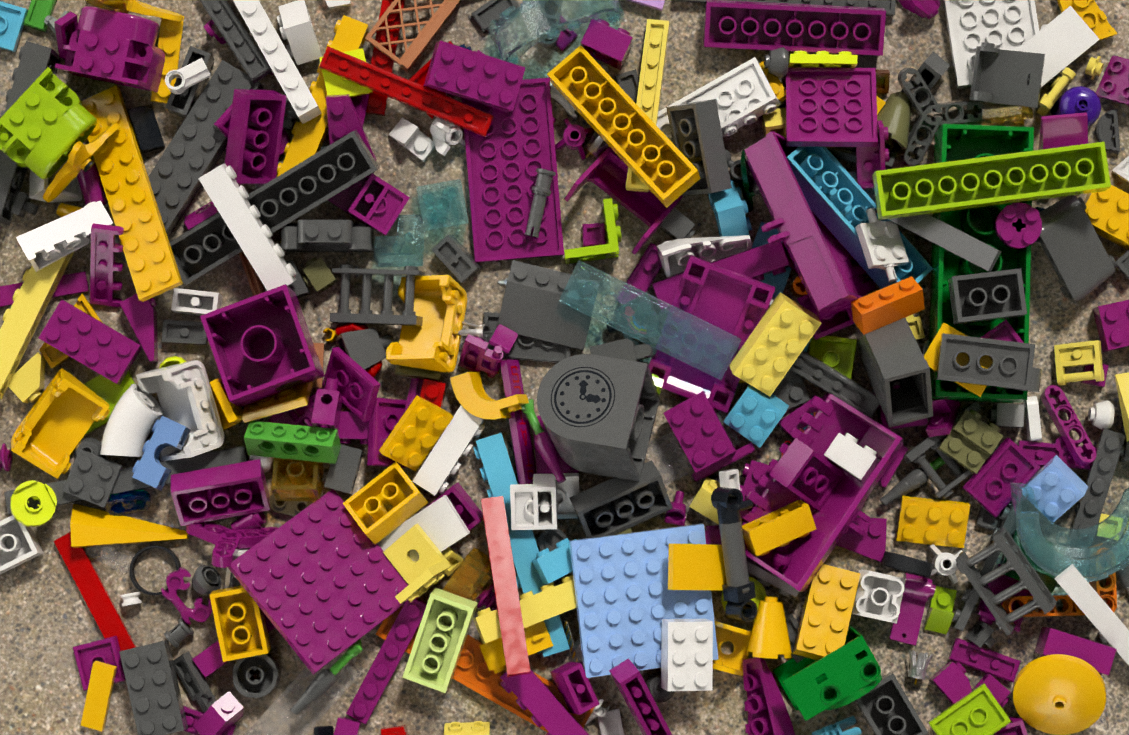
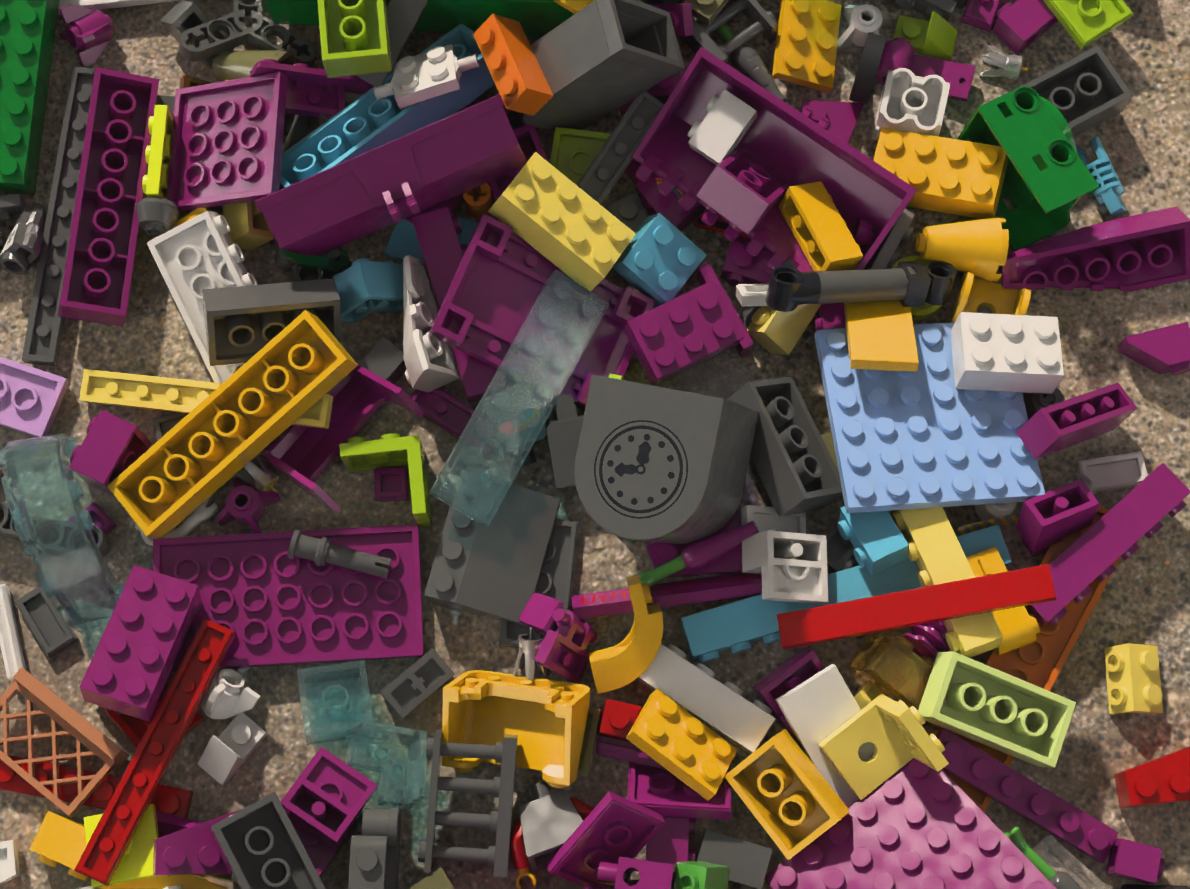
camera: 90 degrees left, 10 degrees down
(677, 514) = (800, 372): magenta piece -> none

